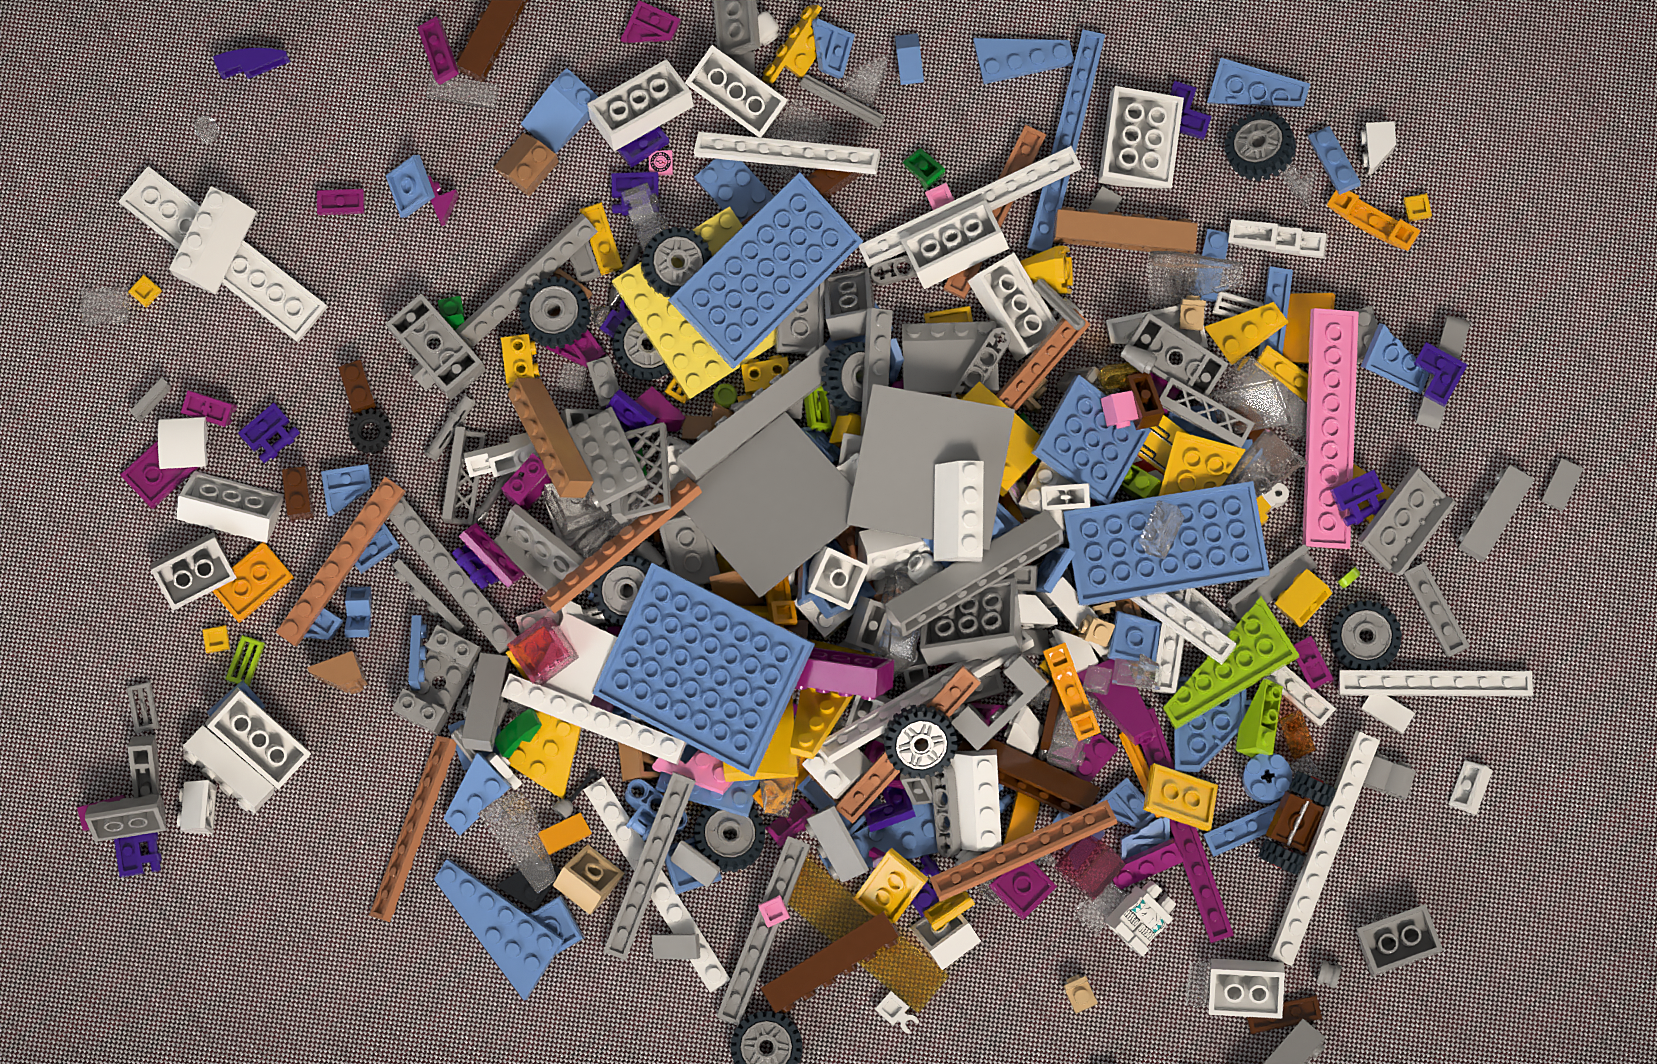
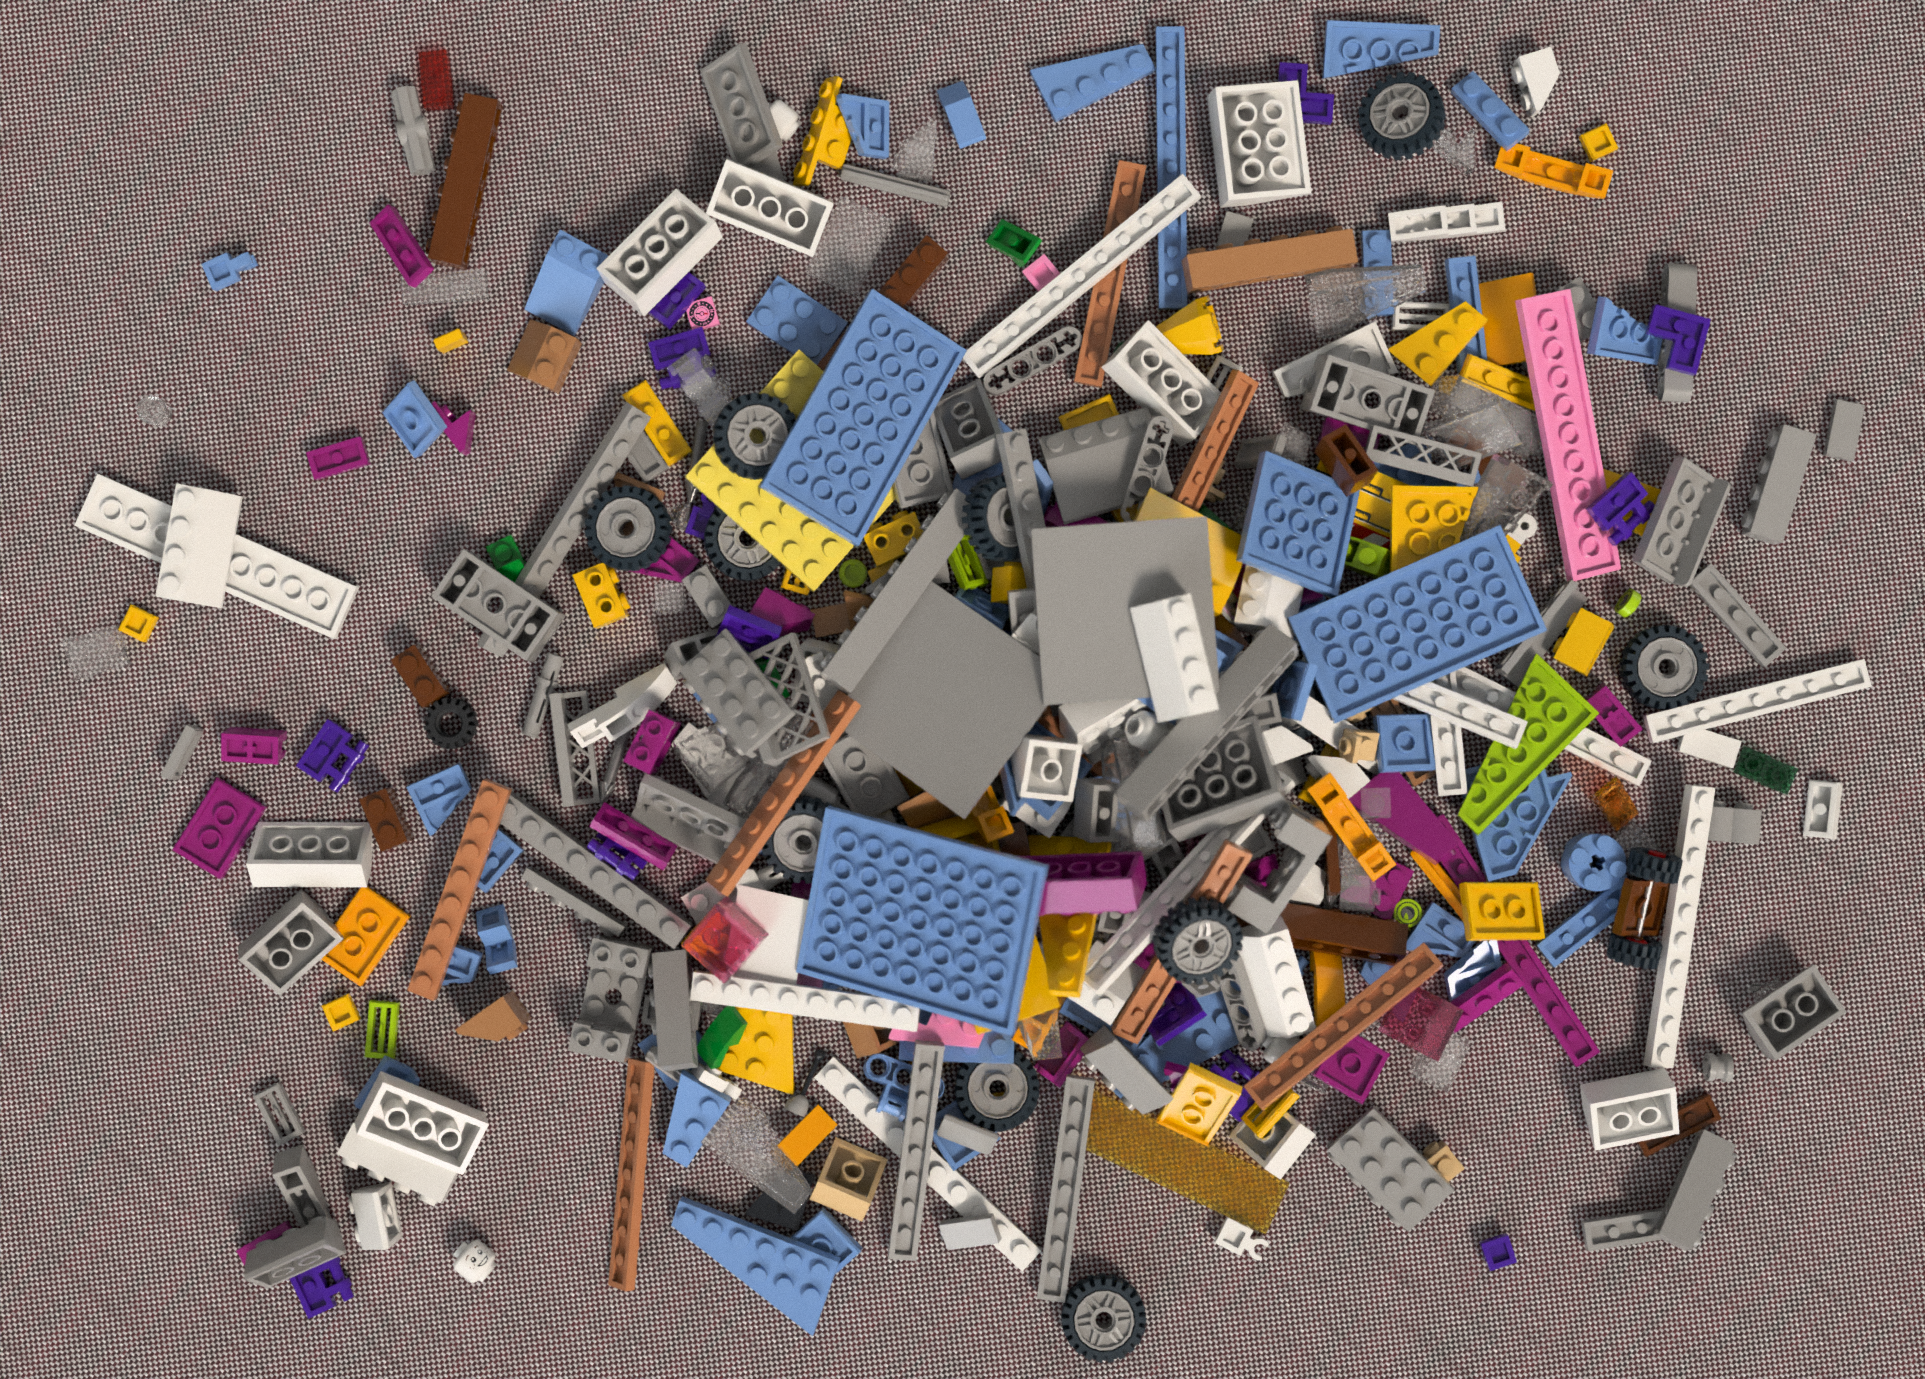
camera: 20 degrees left, 10 degrees up
(182, 442) = (233, 795): white slope -> none
(250, 61) = (181, 316): dark purple slope -> none
(266, 865) = (474, 1261): none -> white head
(293, 35) = (225, 270): none -> medium blue plate
(417, 653) = (578, 971): medium blue plate -> none
(455, 133) = (450, 340): none -> yellow tile
(550, 438) = (664, 684): medium nougat brick -> none
(650, 25) = (644, 151): magenta wing -> none
(774, 911) = (1073, 1167): bright pink tile -> none
(787, 152) = (850, 267): white plate -> none
(830, 962) = (1153, 1205): reddish brown brick -> none
(955, 244) = (1076, 326): white slope -> none
(1033, 983) = (1389, 1169): none -> light grey bracket
(1059, 304) = (1219, 370): light grey axle -> none
(1065, 497) = (1289, 601): white slope -> none
(1104, 780) = (1407, 912): none -> lime tile
(1114, 375) = (1307, 438): clear yellow plate -> none
(1119, 409) = (1323, 479): bright pink brick -> none
(1139, 358) = (1333, 413): light grey cone -> none
(1139, 673) = (1419, 783): clear slope -> none
(1141, 917) = (1492, 1060): white hips -> none
(1161, 529) = (1412, 613): clear brick -> none
(1191, 313) = (1372, 339): tan bracket -> none
(1198, 984) = (1575, 1119): clear piece -> none
(1260, 722) = (1572, 803): lime slope -> none
(1429, 742) = (1765, 770): none -> clear green slope

